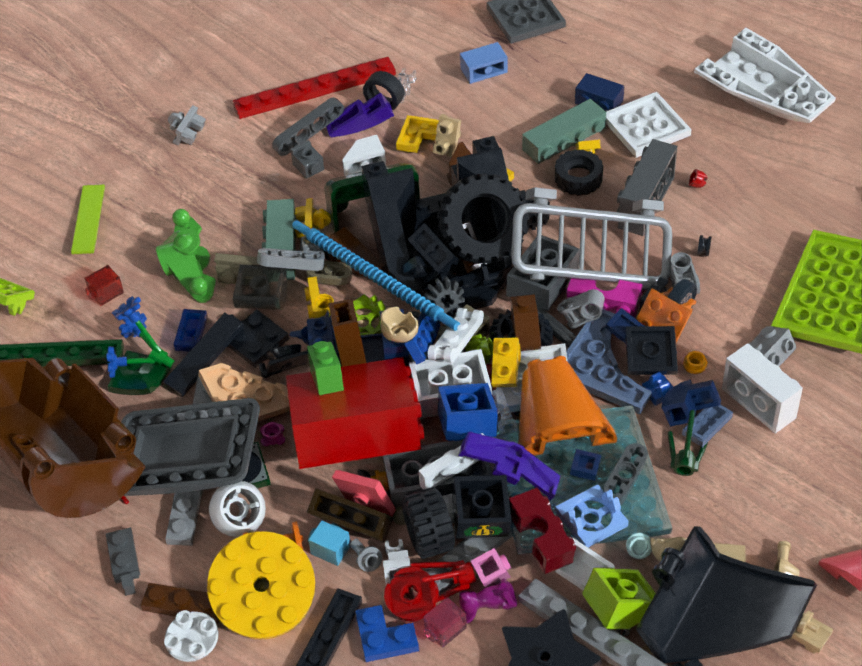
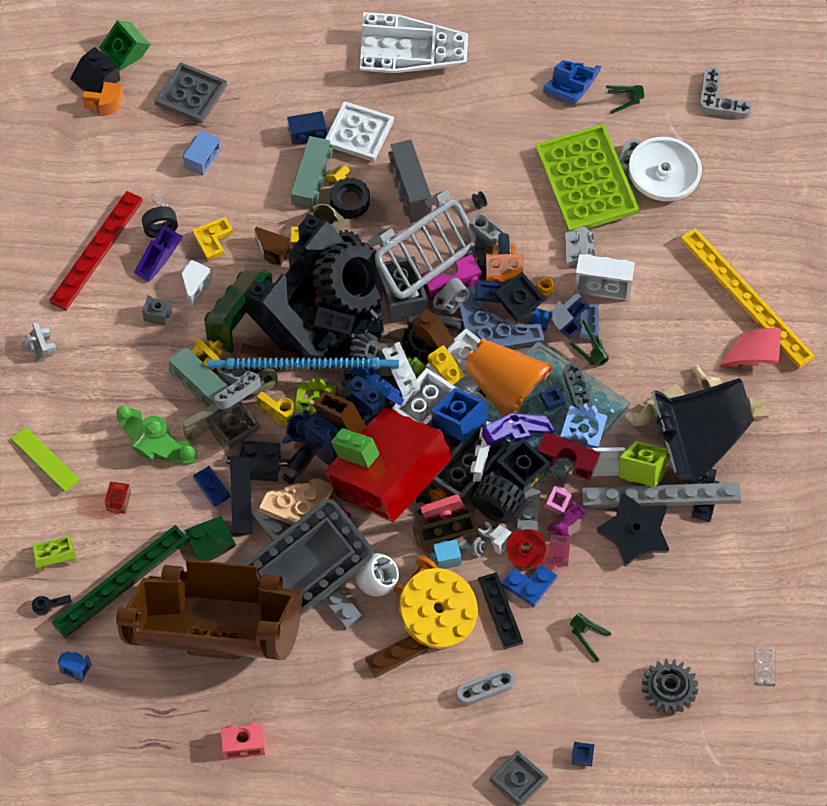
camera: 45 degrees left, 10 degrees up
(123, 558) = (332, 657): dark grey hinge -> none
(134, 327) = (186, 504): blue plant -> none
(191, 636) = (423, 668): white dish -> none
(331, 108) = (132, 284): dark grey beam -> none
(398, 326) = (376, 388): tan hair -> none
(447, 135) = (239, 229): tan hips -> none
(461, 572) = (543, 517): red plant -> none
(534, 173) = (327, 213): none -> dark tan hair
(638, 545) = (620, 426): light aqua plate -> none
(698, 179) = (434, 153): red hinge -> none

